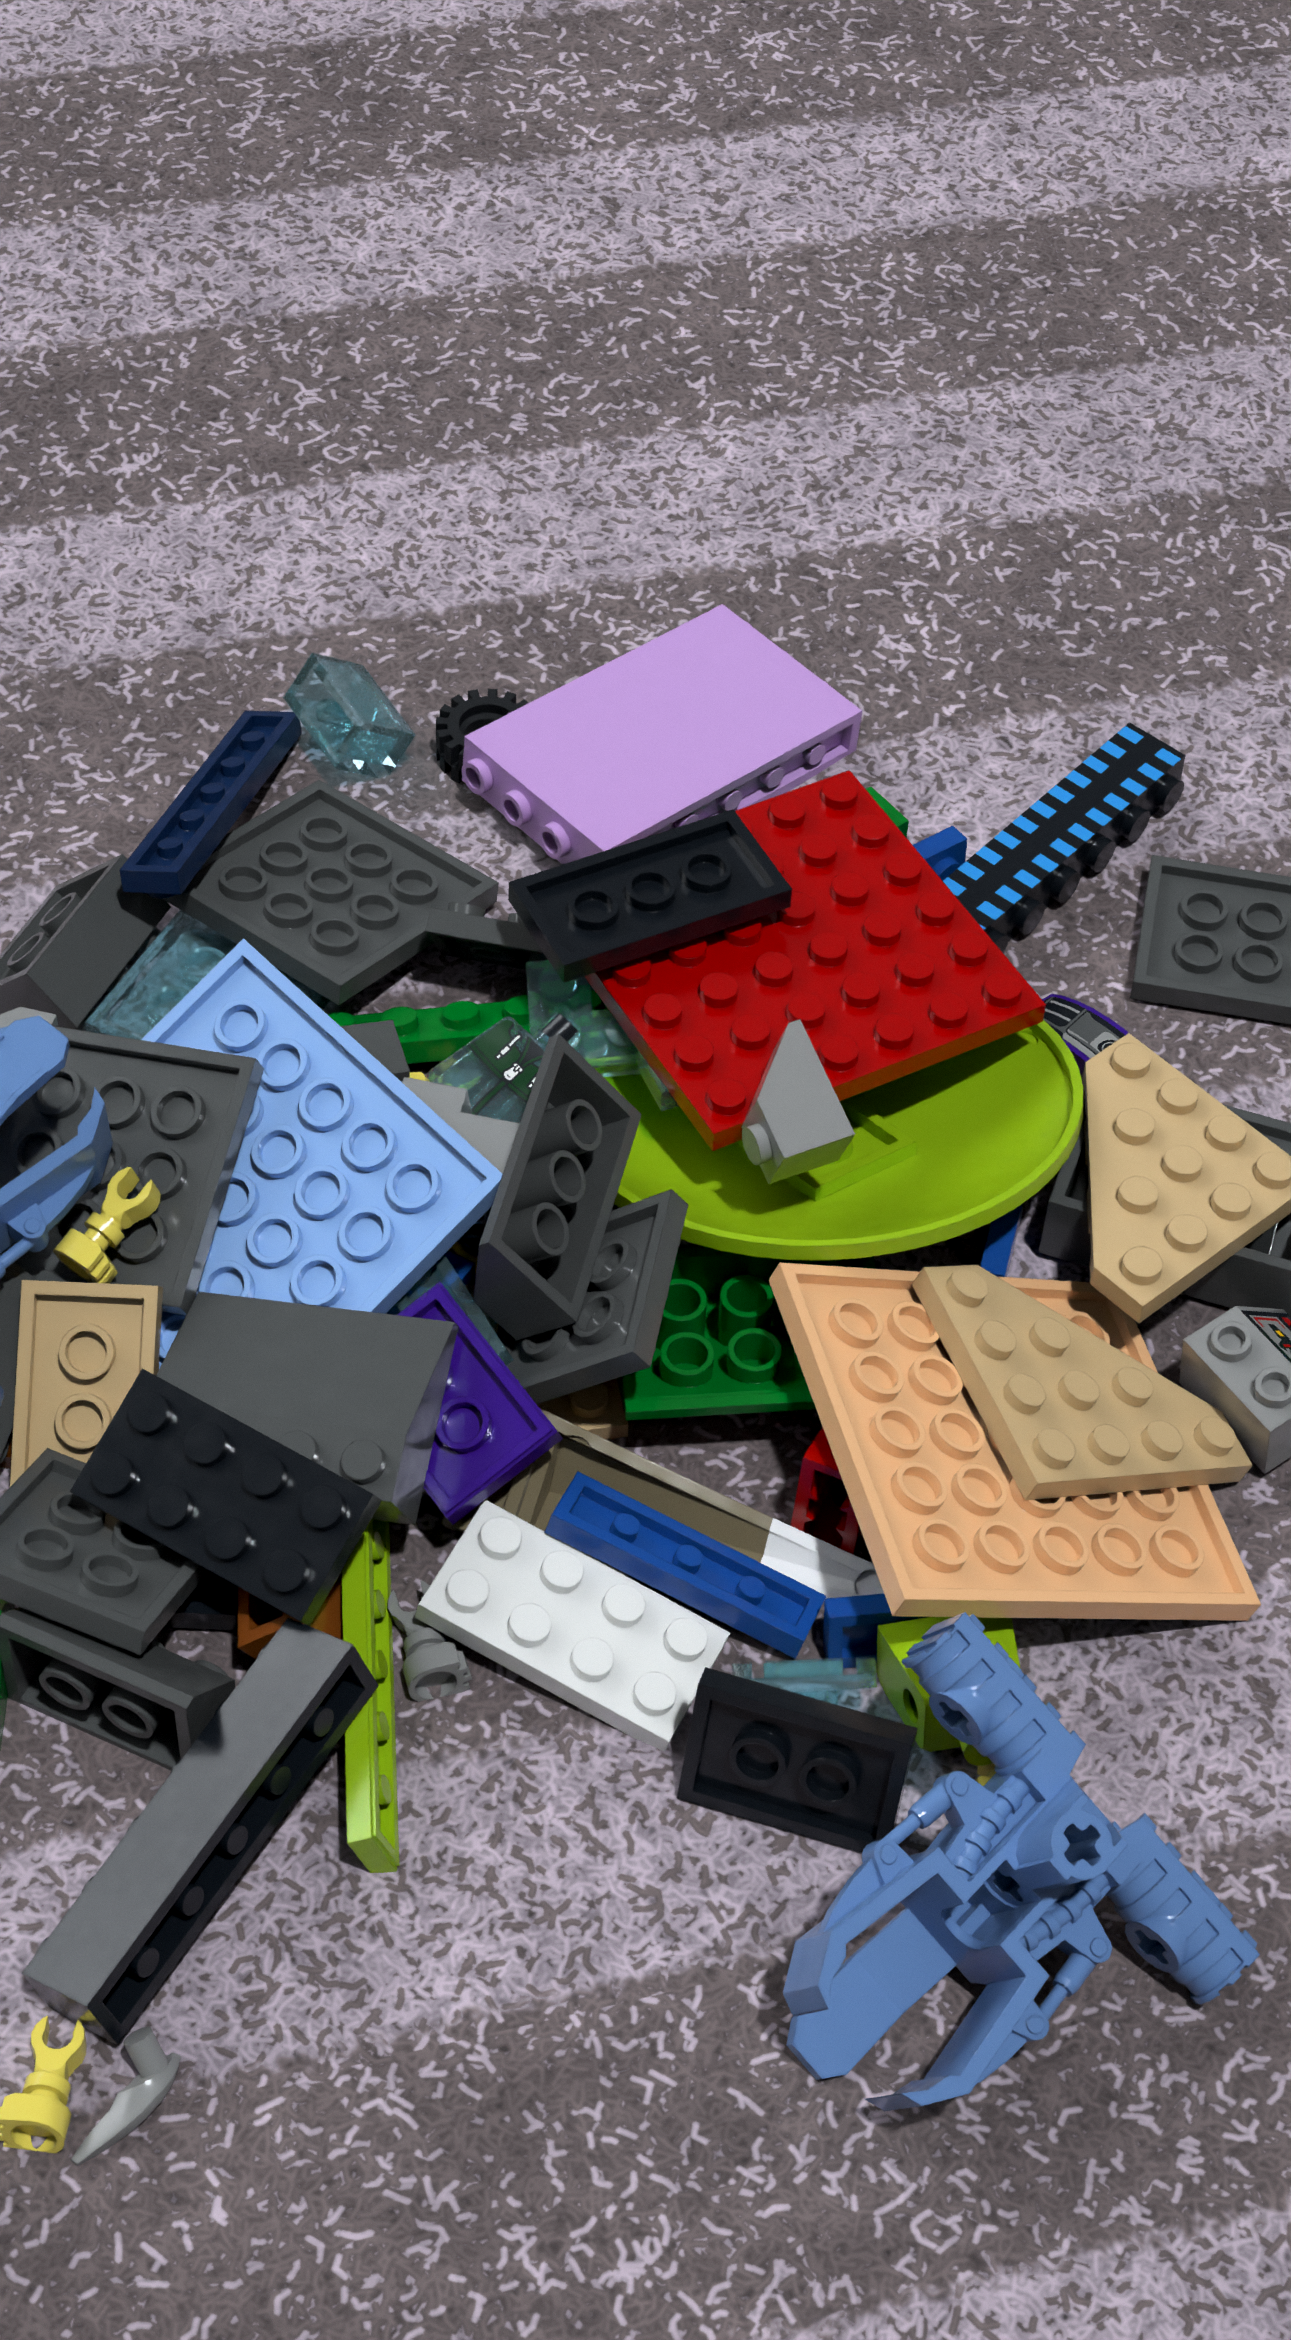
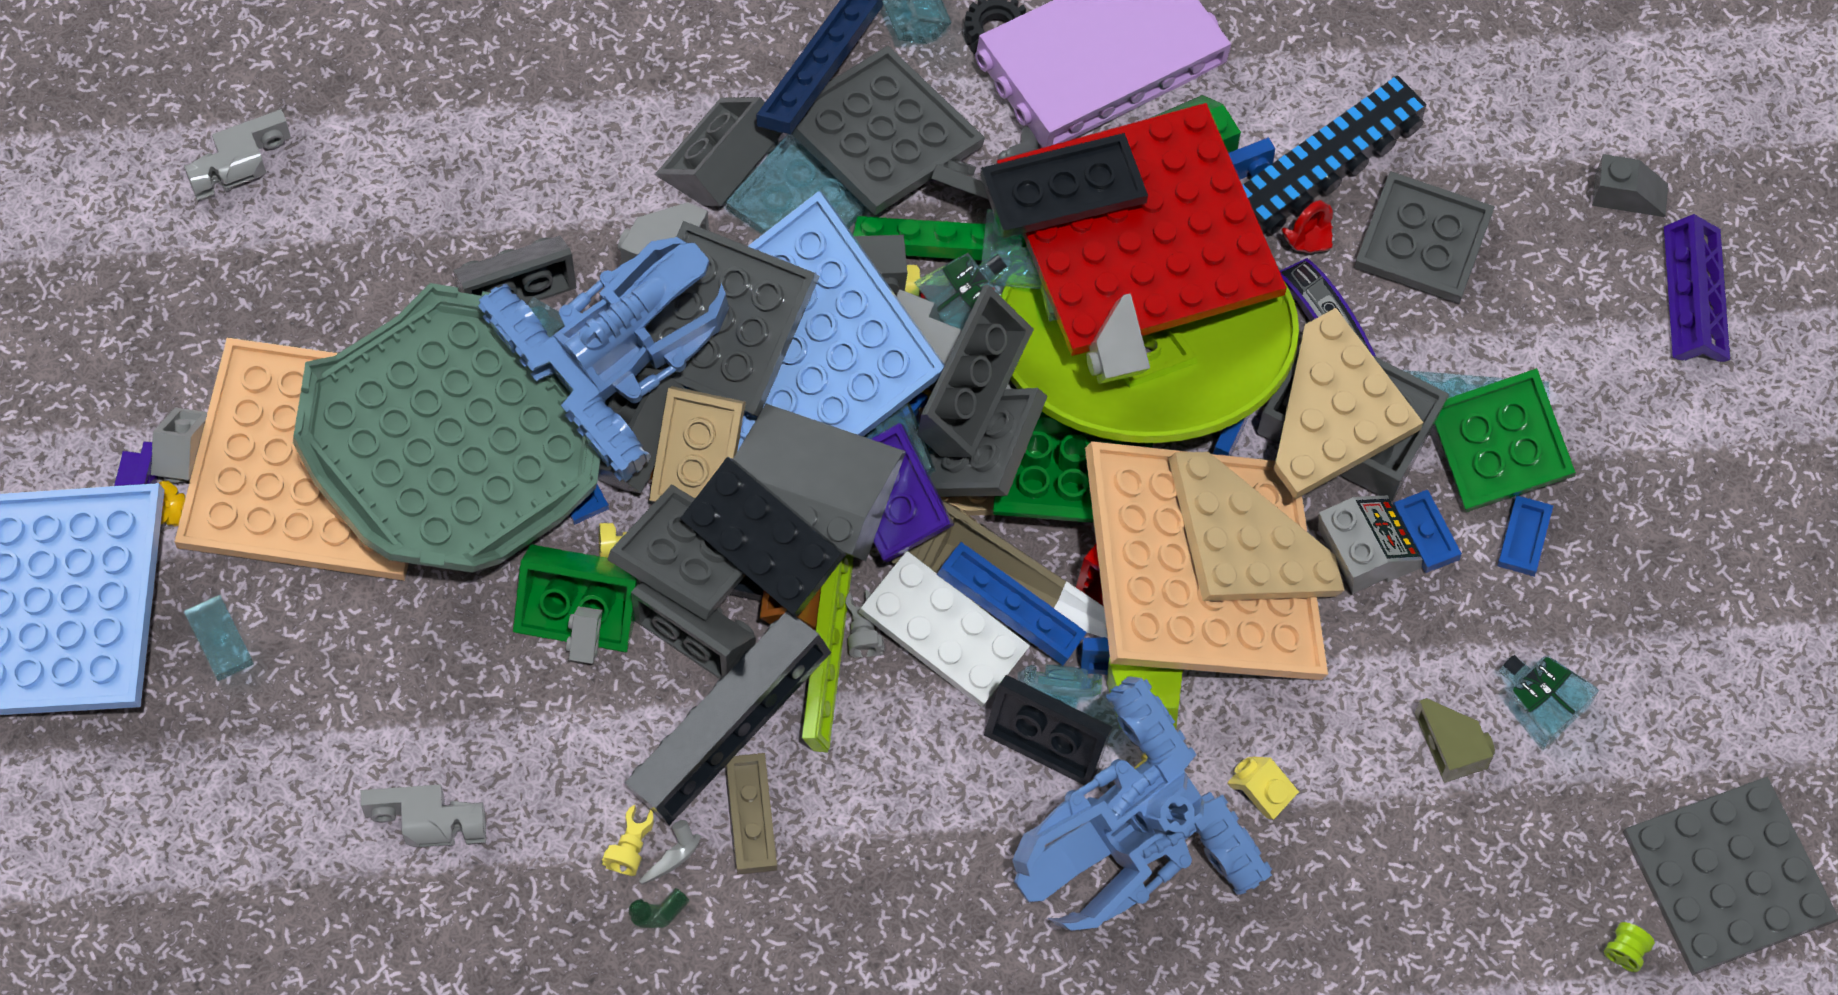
camera: 10 degrees right, 15 degrees up
(85, 1252) = (717, 362): light yellow piece -> none
(118, 2218) = (658, 915): none -> clear green arm
(272, 2001) = (751, 814): none -> dark tan plate
(1051, 946) = (1312, 229): none -> red piece
(1199, 1804) = (1263, 785): none -> light yellow bracket

